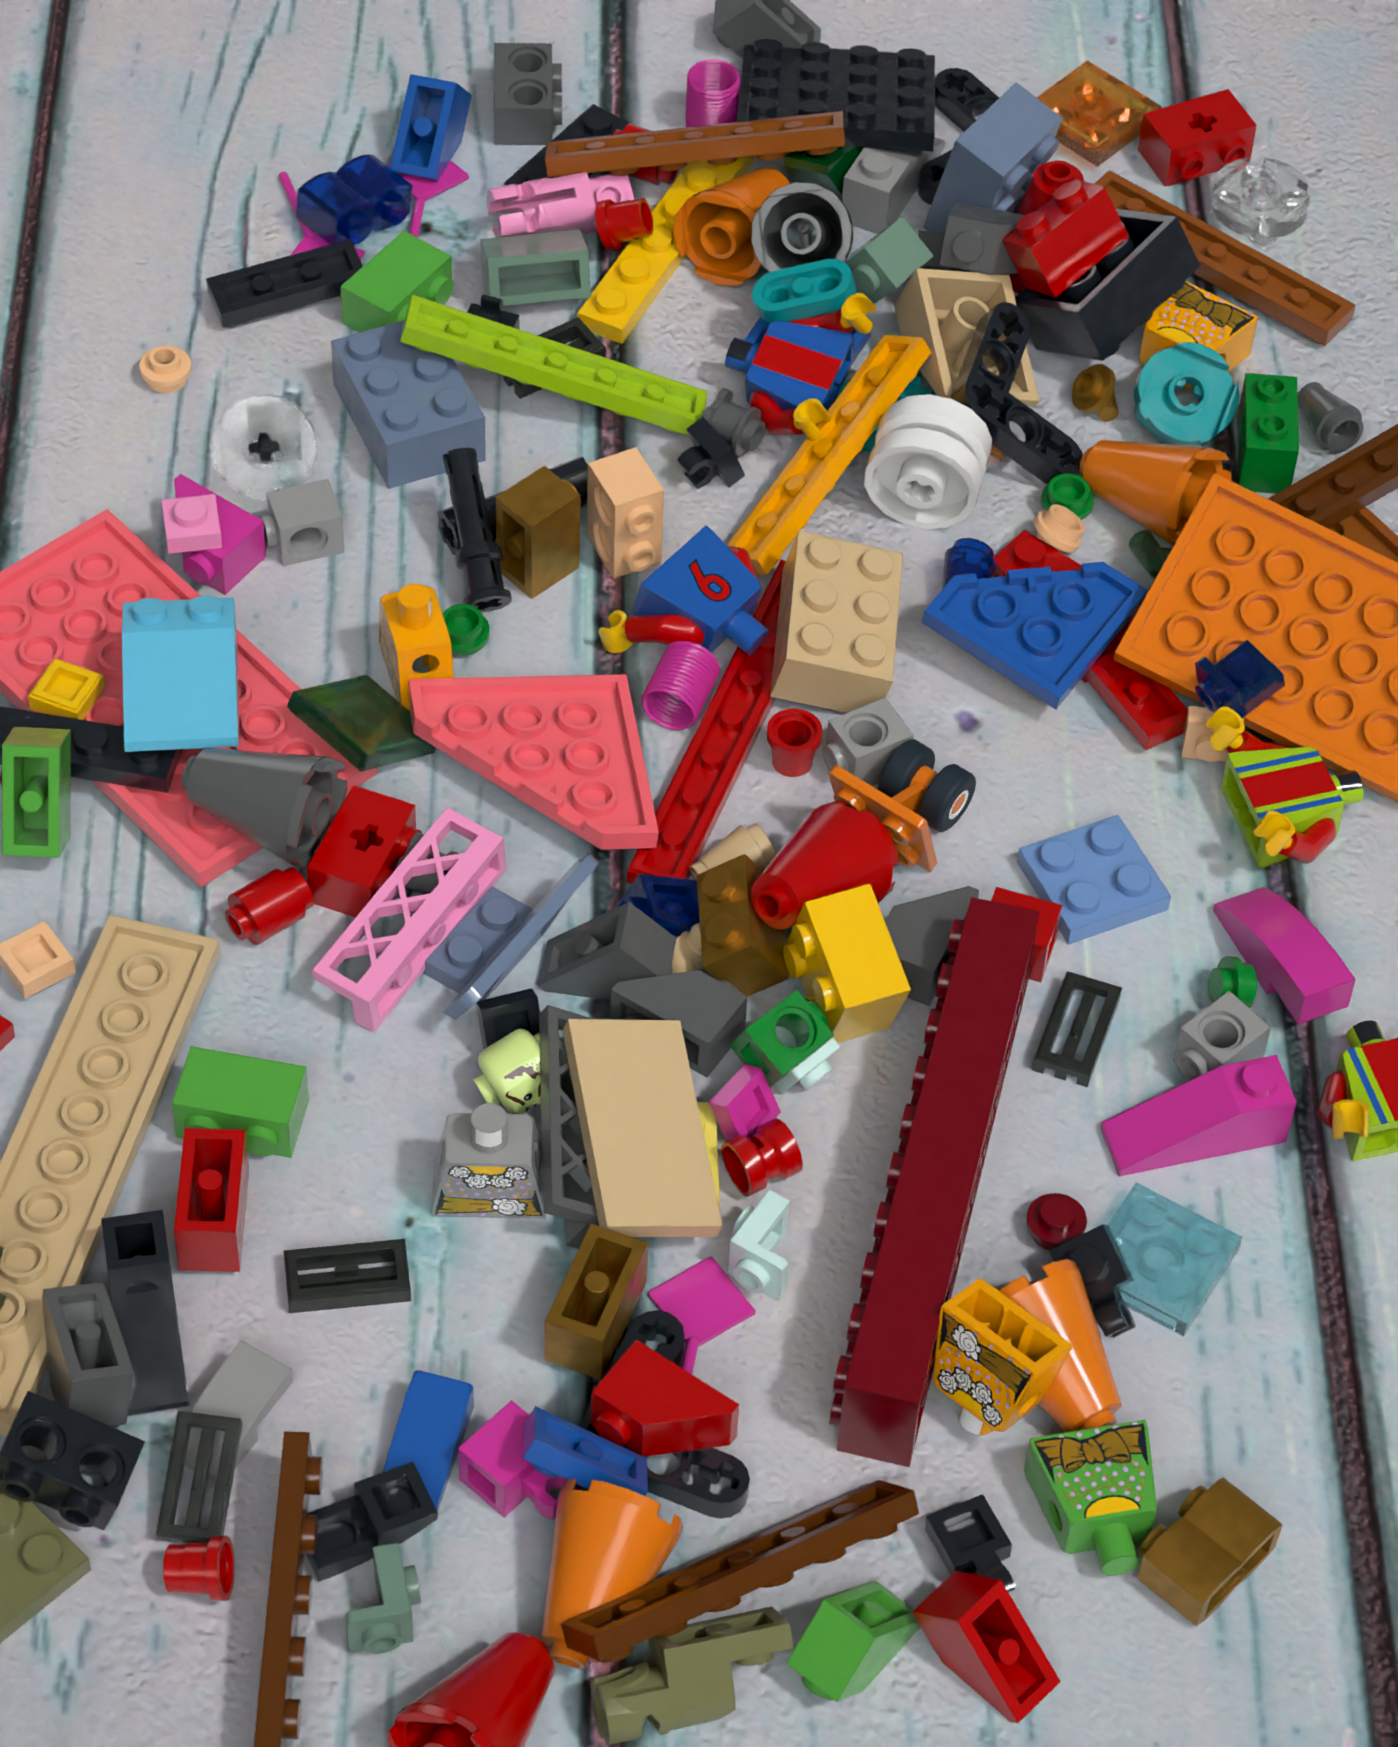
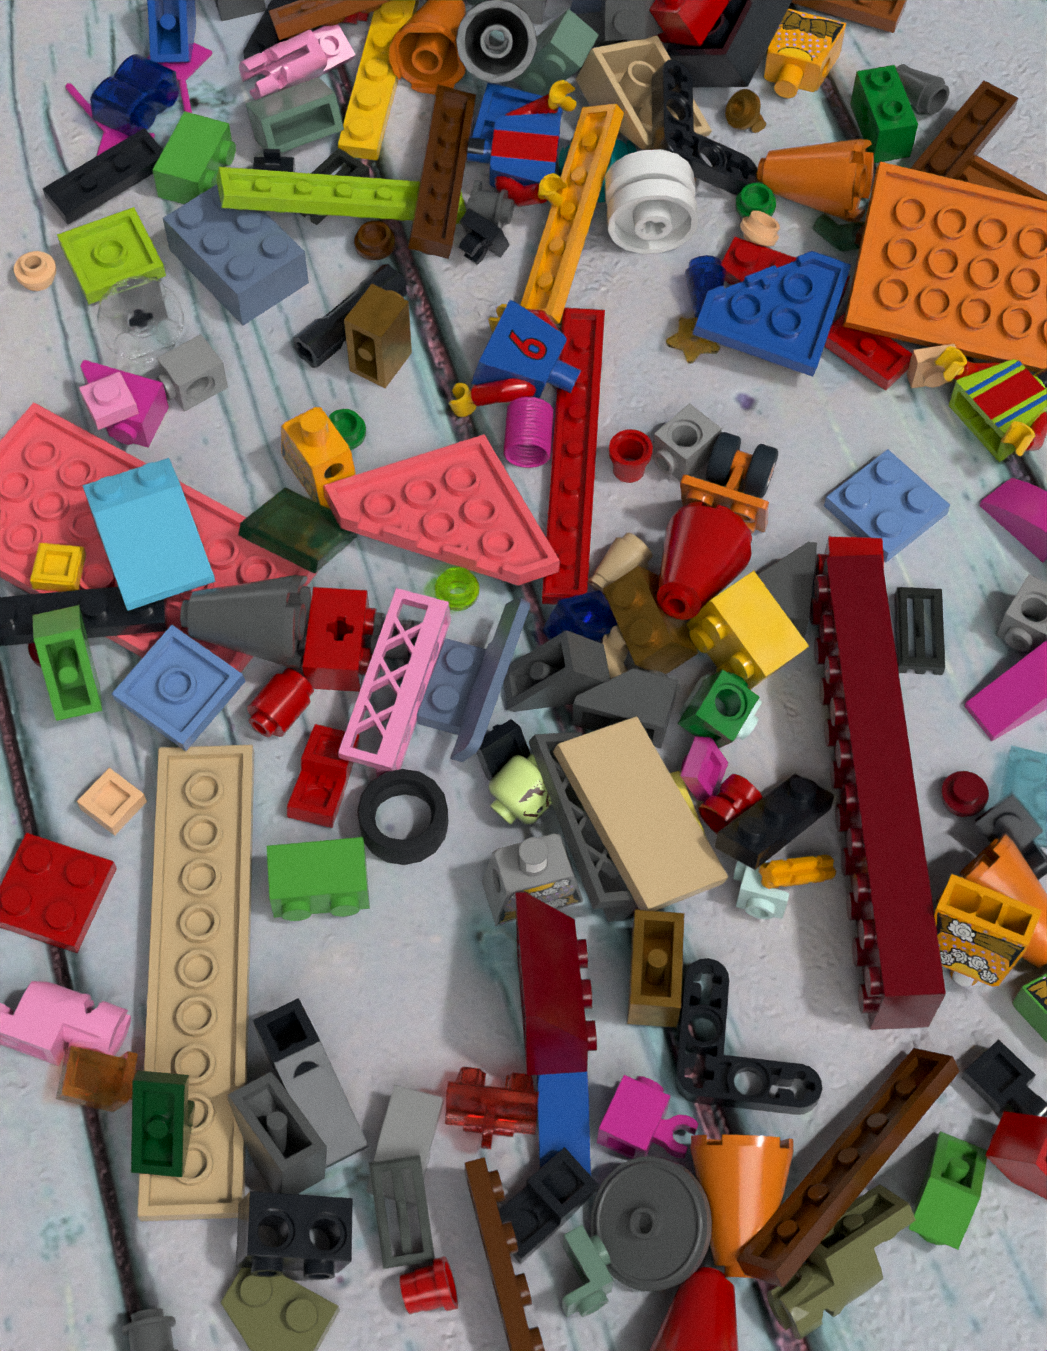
camera: 15 degrees left, 10 degrees up
(155, 853) = (178, 687): none -> medium blue plate
(211, 1200) = (329, 971): red brick -> none
(260, 363) = (109, 252): none -> lime plate
(287, 1003) = (321, 778): none -> red slope
(347, 1284) = (455, 1015): pearl dark grey tile -> none
(347, 1400) = (491, 1108): none -> clear red hips
(358, 1029) = (395, 784): none -> black tyre
(459, 1281) = (552, 989): none -> dark red slope
(477, 552) = (337, 364): black pin -> none
(482, 1569) = (652, 1223): none -> dark grey shield
(532, 826) = (457, 578): none -> clear neon green plate
(572, 1452) = (700, 1109): blue plate -> none
(580, 430) = (374, 240): none -> reddish brown plate
(623, 221) = (348, 62): red piece -> none
(625, 512) = (439, 302): light nougat brick -> none
(660, 1406) = (738, 1045): red slope -> none
(685, 370) = (442, 172): none -> reddish brown plate
(703, 1303) = (731, 940): dark pink piece -> none
(802, 1179) = (774, 821): none -> black plate
(803, 290) = (511, 85): teal plate -> none
(810, 1244) = (797, 871): none -> light orange axle
(836, 623) = (630, 352): tan brick -> none
(923, 645) = (691, 349): none -> clear yellow plate
(1211, 382) = (796, 110): teal plate -> none
(1233, 977) = (1020, 561): green plate -> none
(1238, 680) = (946, 321): clear blue bracket -> none

